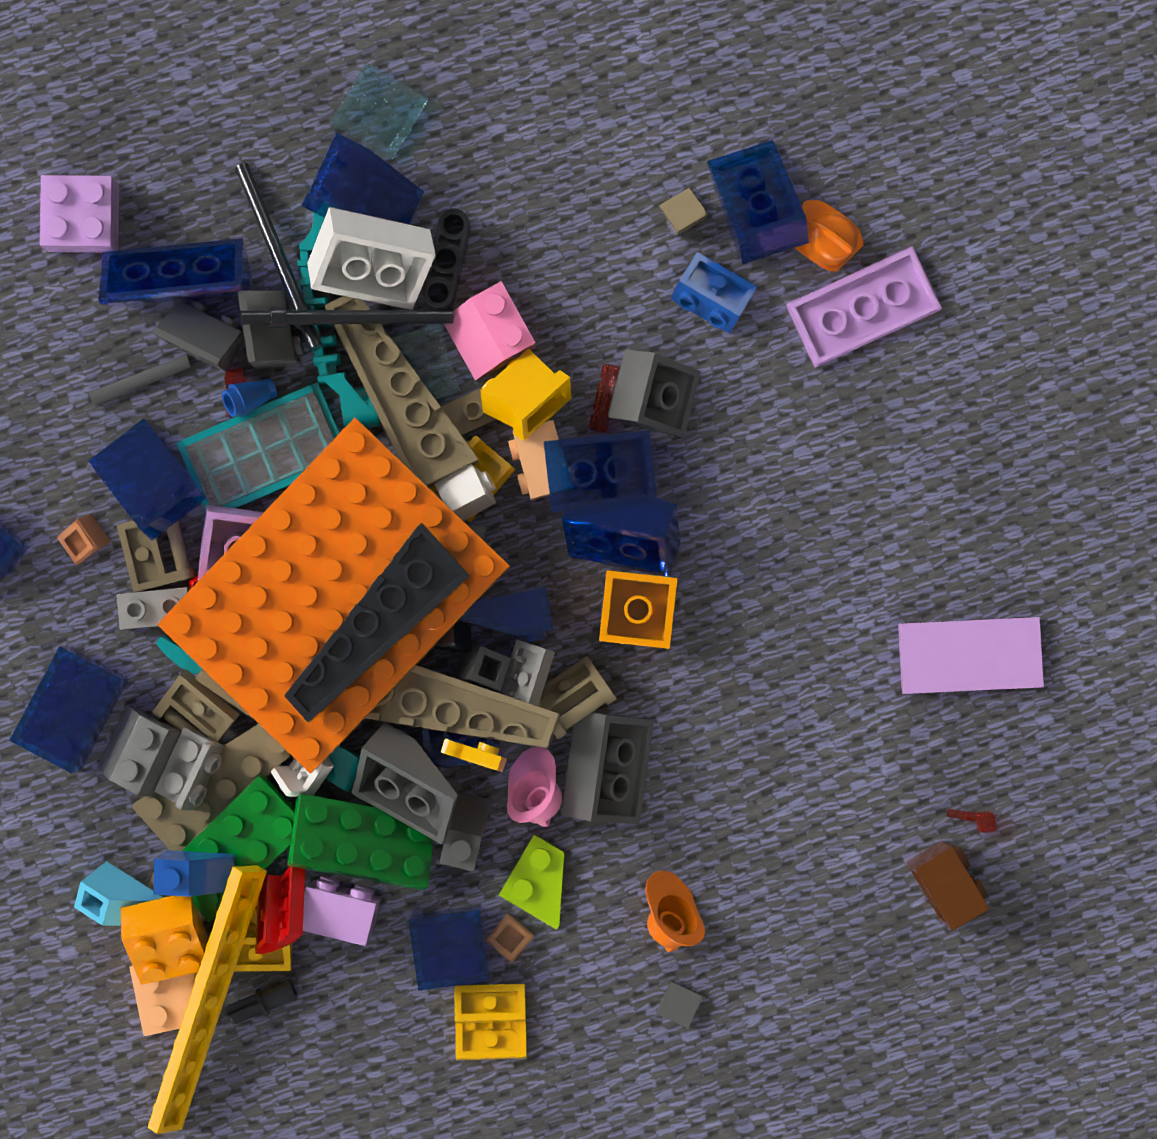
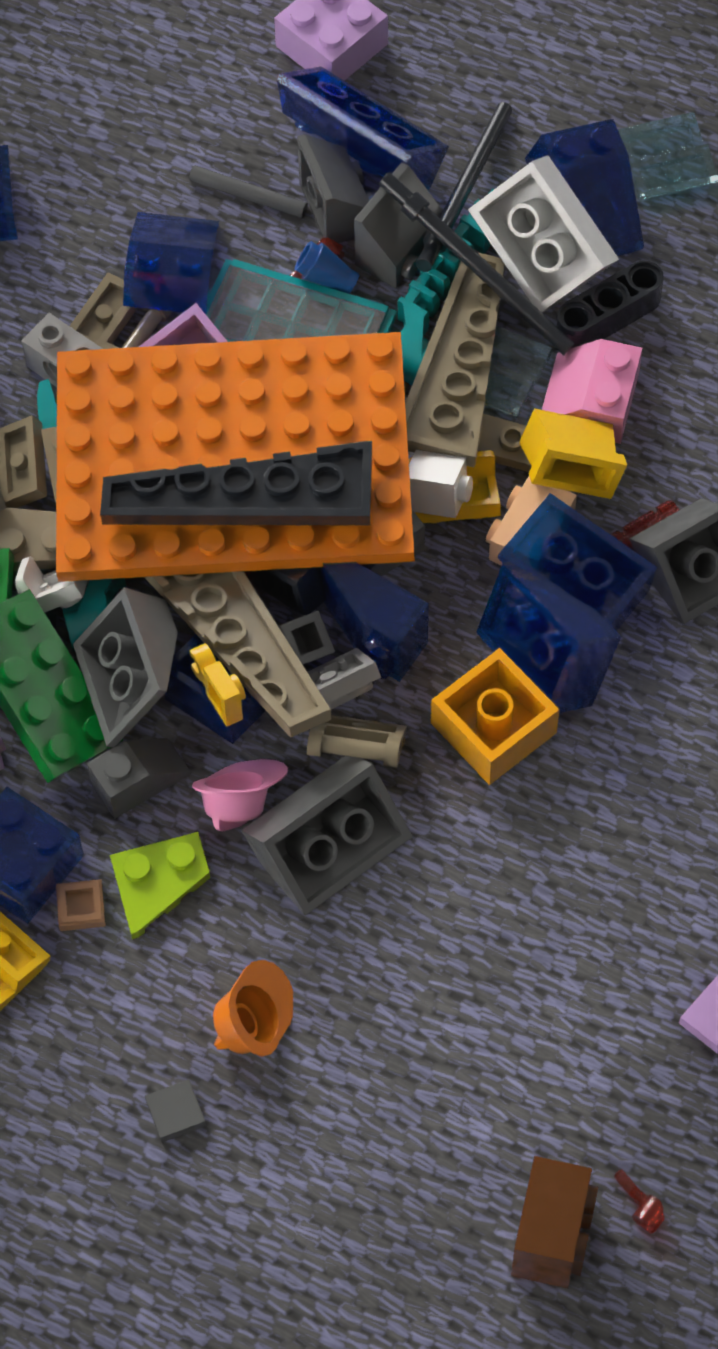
camera: 45 degrees right, 25 degrees down
(83, 538) = (68, 266): nougat slope -> none

